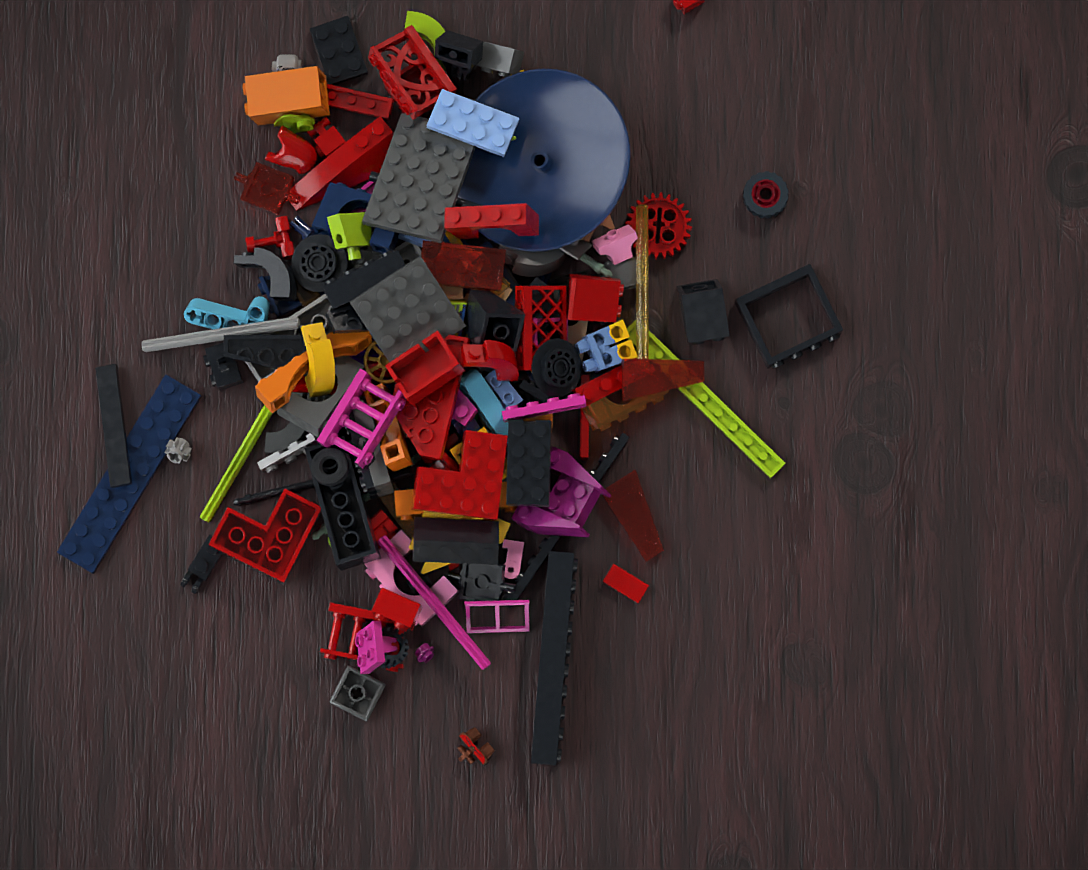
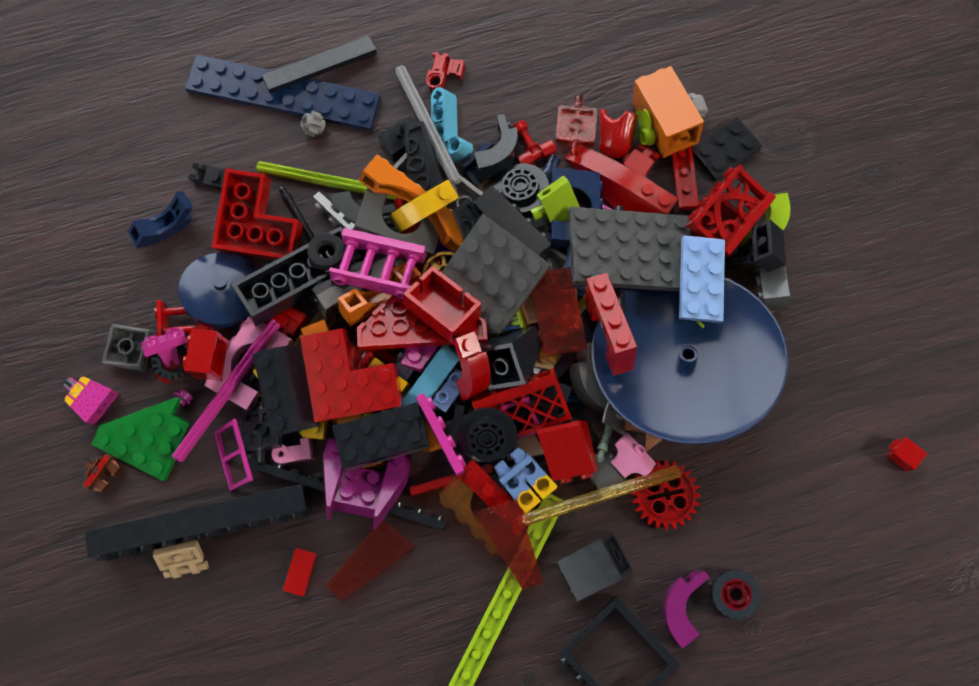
camera: 75 degrees right, 5 degrees down
(158, 300) = (445, 66): none -> piece
(237, 627) = (163, 225): none -> dark blue arch
(324, 593) = (208, 292): none -> dark blue dish
(395, 744) = (88, 398): none -> dark pink torso
(453, 697) = (145, 438): none -> green wing
(581, 688) = (180, 559): none -> tan plate
(760, 252) = (675, 607): none -> magenta arch

